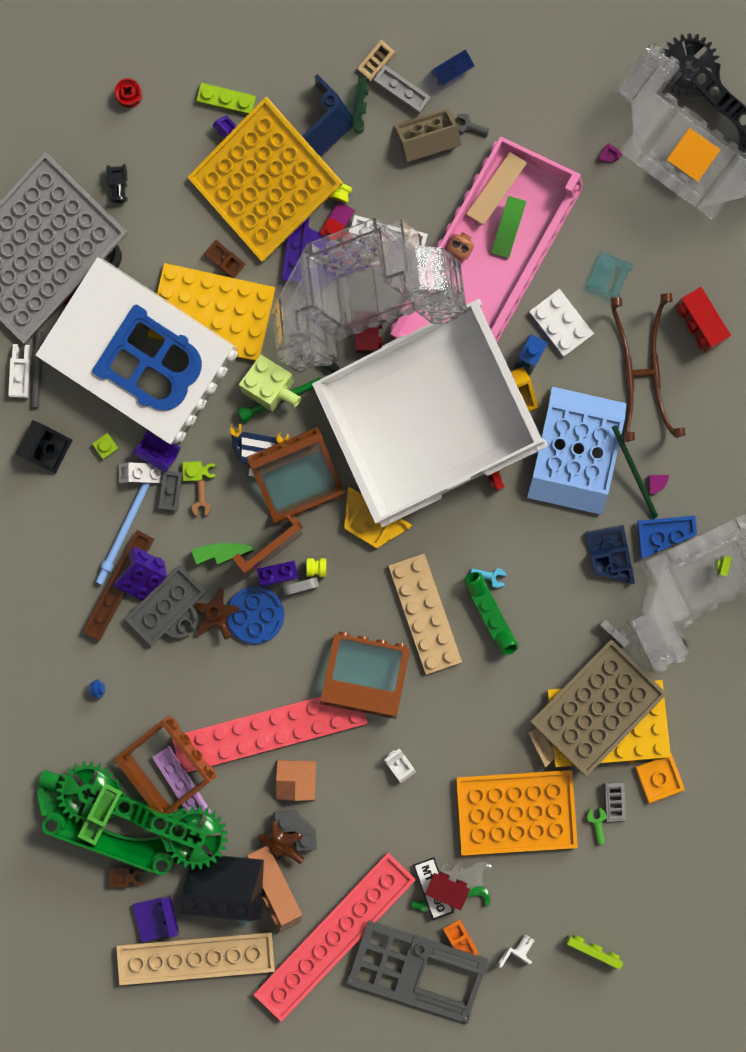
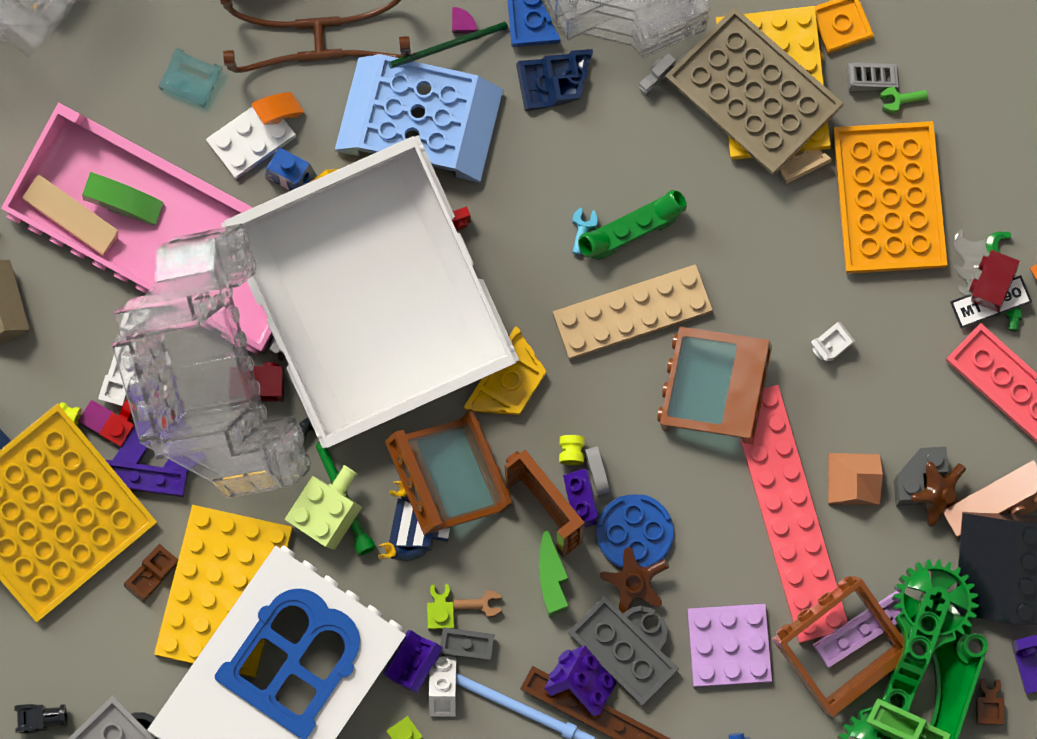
camera: 85 degrees left, 10 degrees down
(170, 684) = (729, 645): none -> lavender plate
(460, 246) = (143, 261): nougat head -> none
(582, 341) = (277, 107): none -> orange slope
(610, 154) = (30, 76): magenta tile -> none

